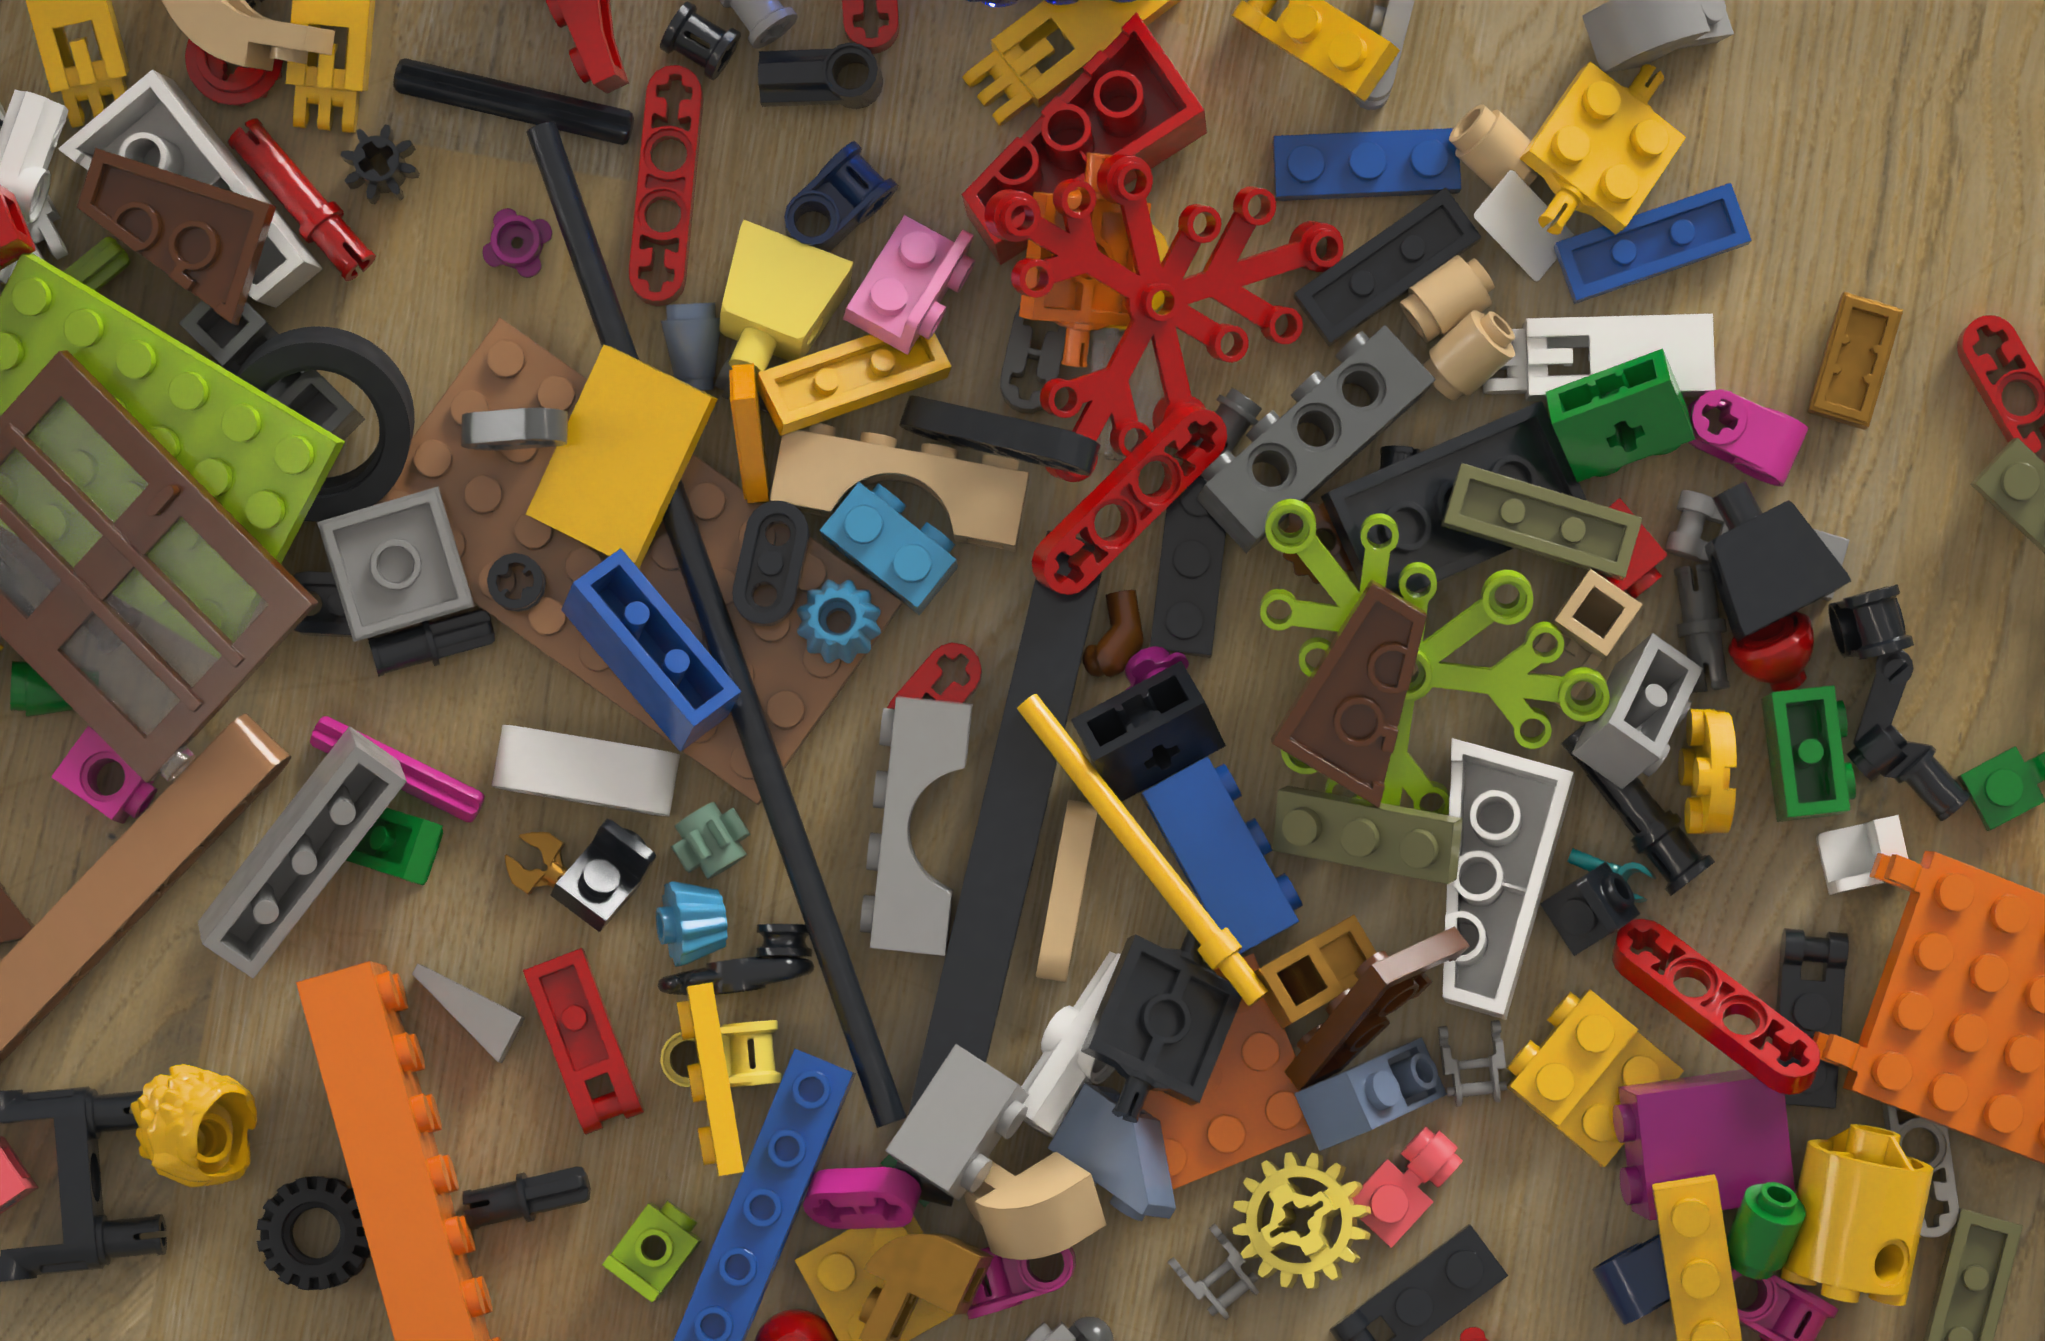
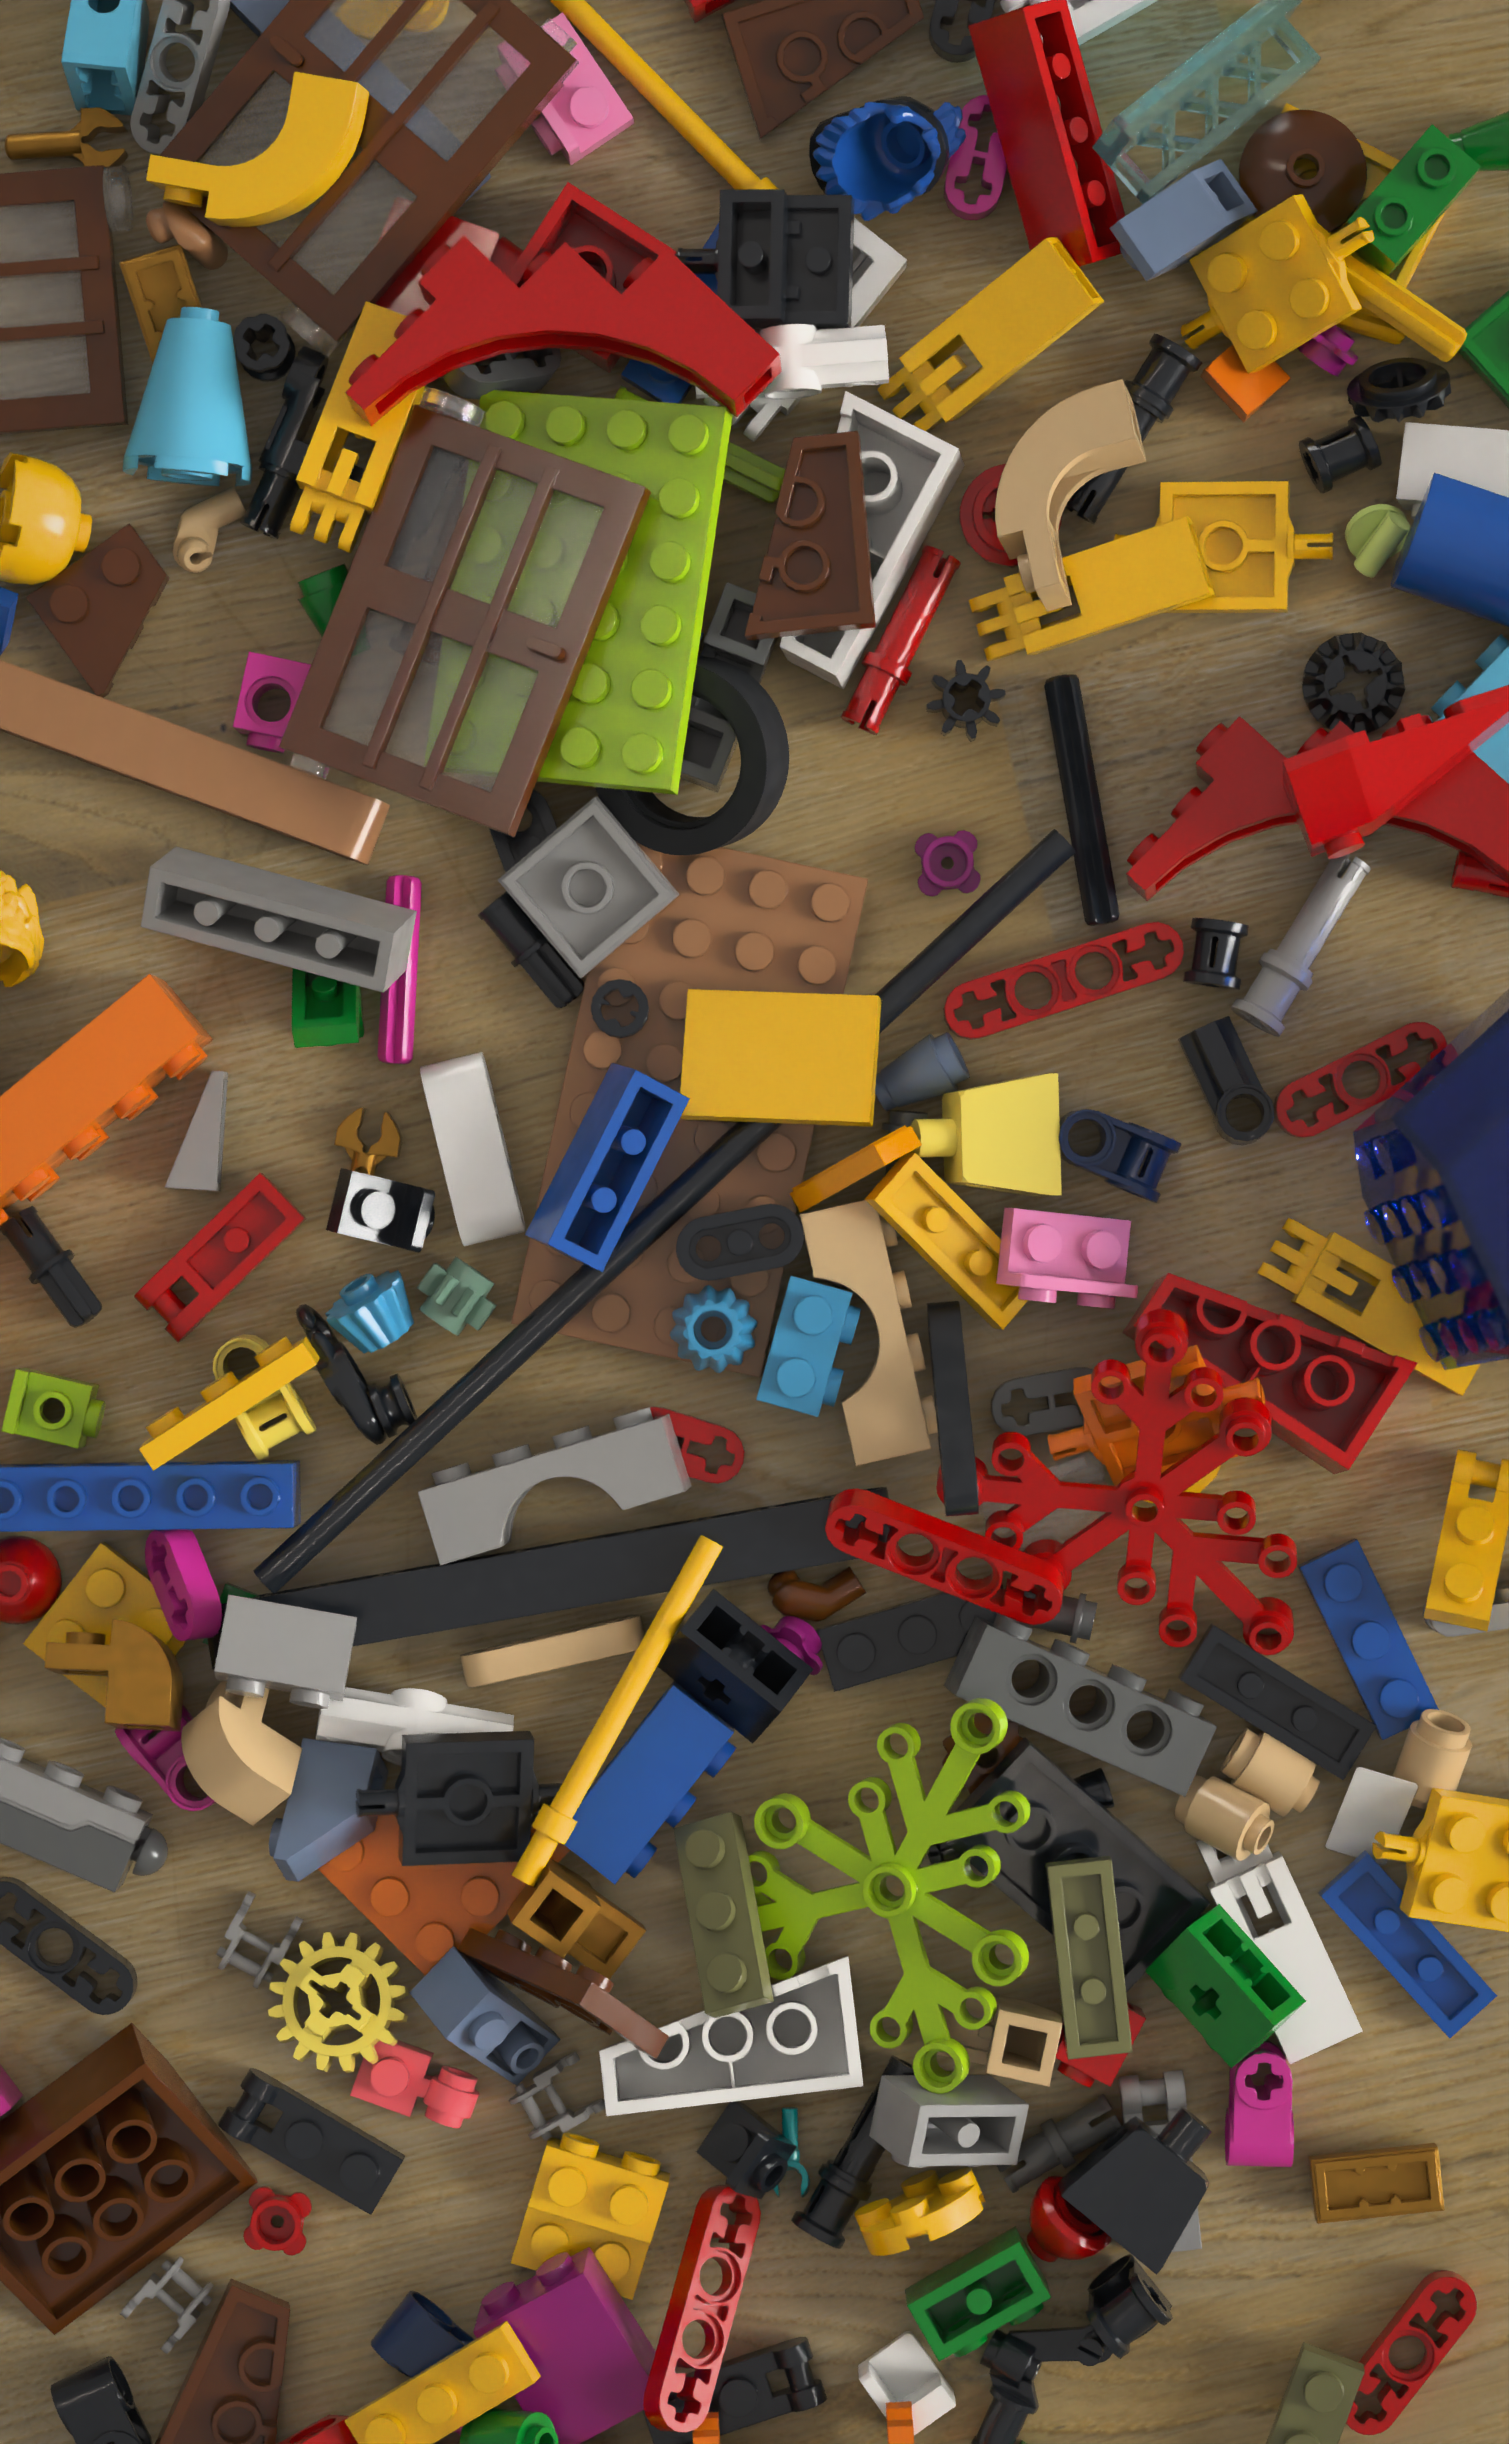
camera: 65 degrees right, 5 degrees up
(514, 429) = (762, 945): dark grey beam -> none
(1356, 694) = (847, 1852): reddish brown wing -> none

